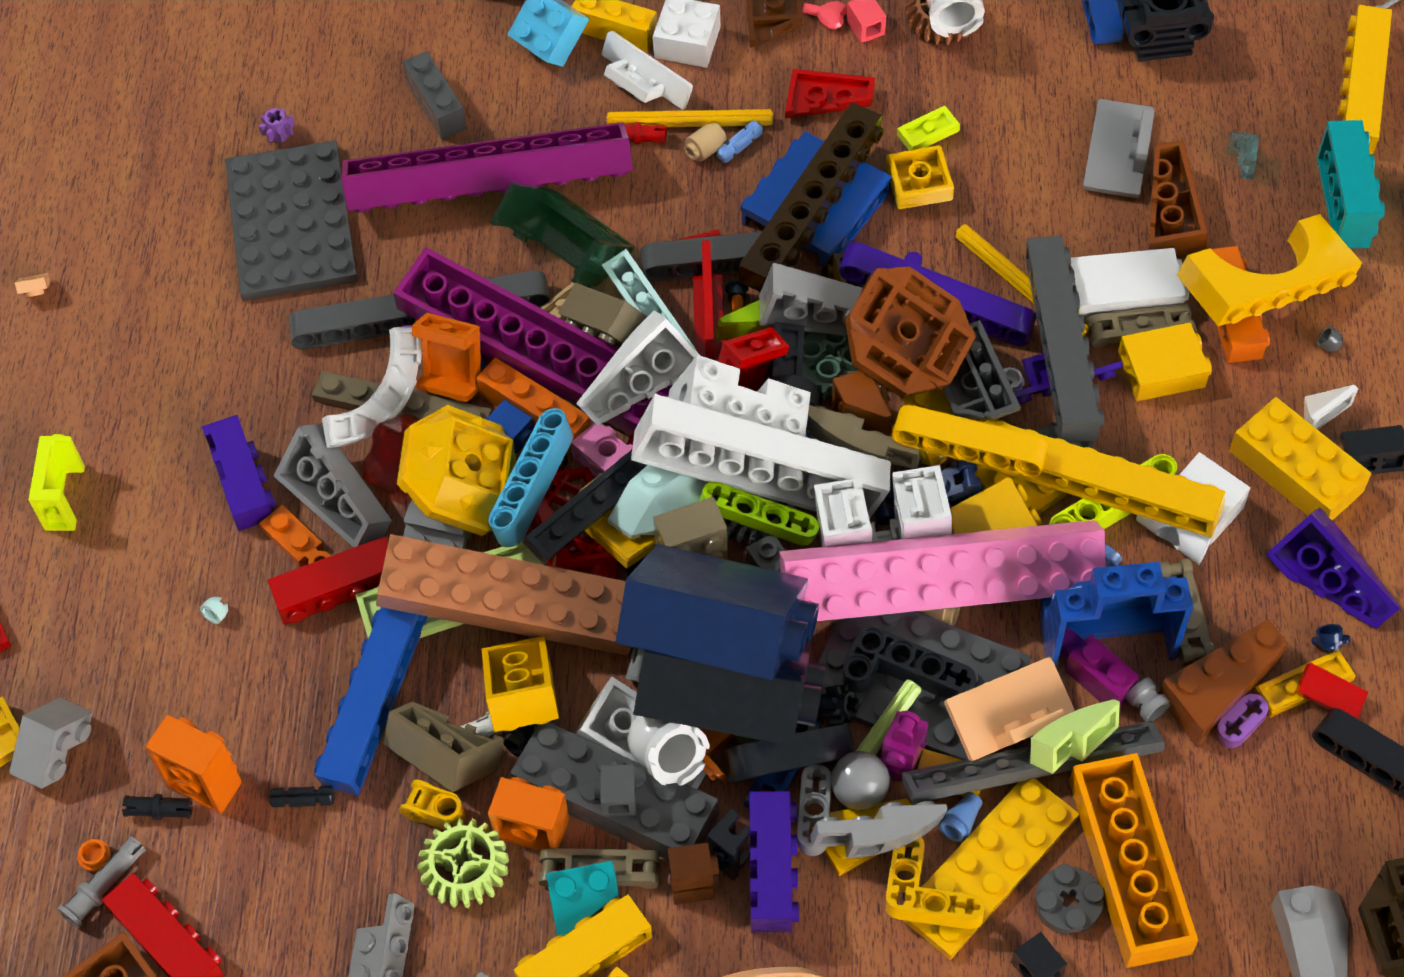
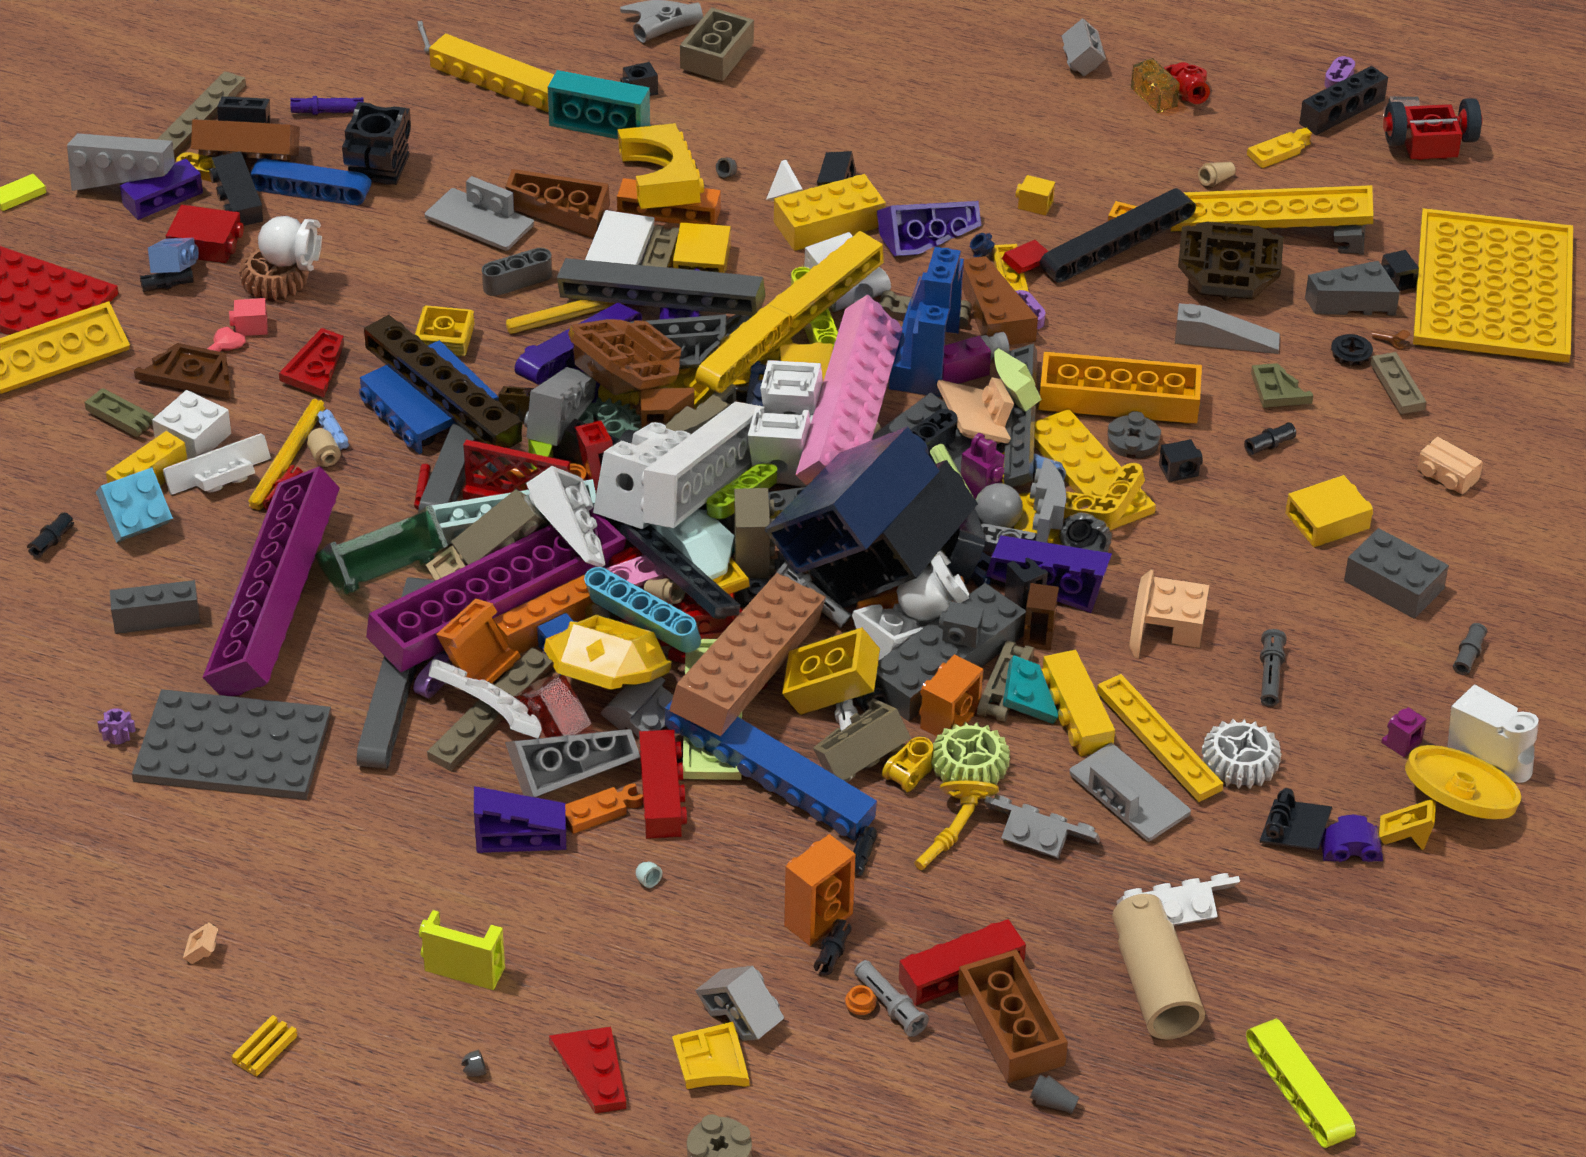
camera: 75 degrees left, 15 degrees down
(394, 872) = (969, 794): none -> yellow dish
(849, 888) = (1085, 532): none -> dark grey hair
(928, 129) = (395, 307): neon yellow plate -> none
(1045, 206) = (517, 271): none -> dark grey beam
(1246, 148) = (530, 151): clear light blue bracket -> none

